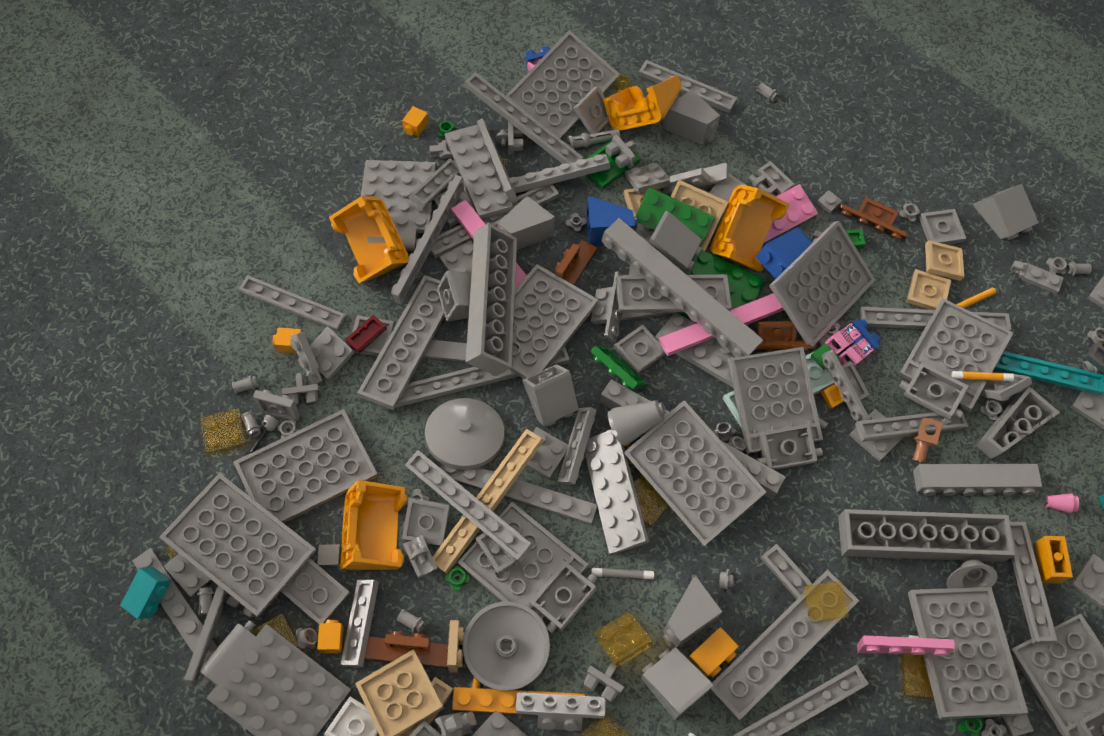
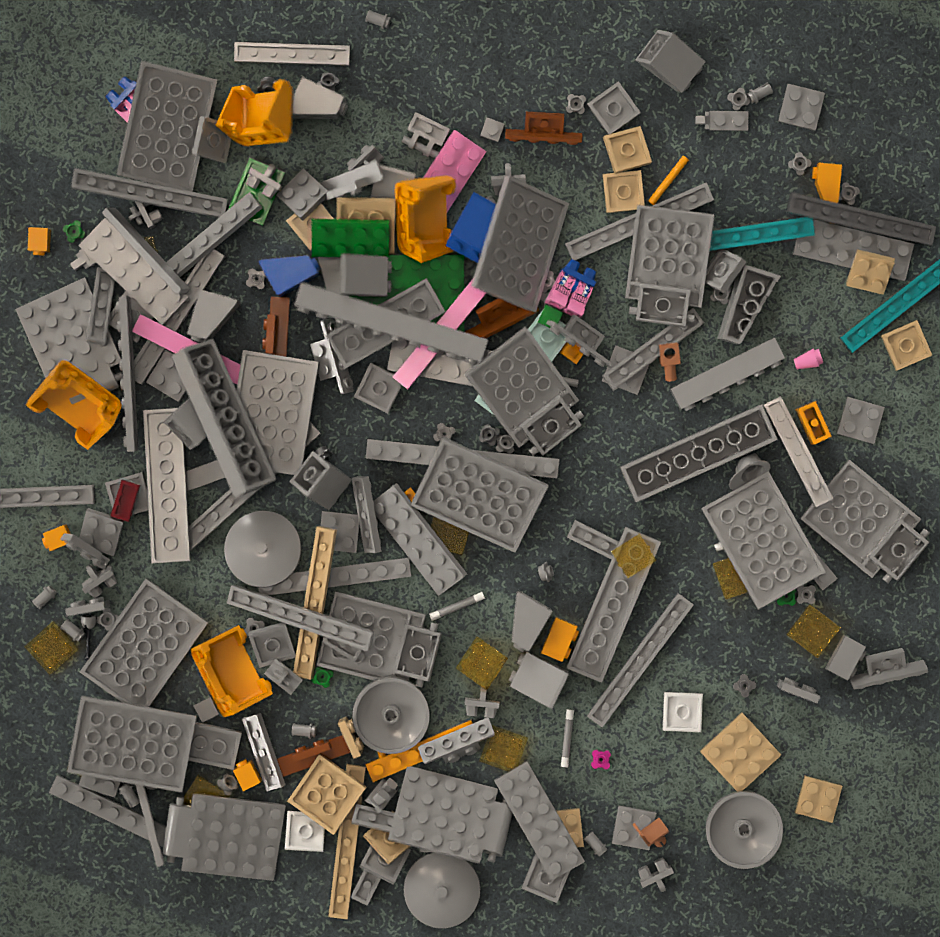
camera: 25 degrees left, 25 degrees up
(145, 593) = (80, 814): teal brick -> none
(585, 140) = (218, 175): light grey pin -> none
(618, 368) = (369, 422): green plate -> none
(622, 79) = (224, 76): clear yellow plate -> none
(635, 420) = (405, 475): light grey cone -> none
(857, 237) = (532, 165): green plate -> none
(901, 645) = (703, 570): bright pink wing -> none
(982, 376) = (699, 273): light orange bar -> none

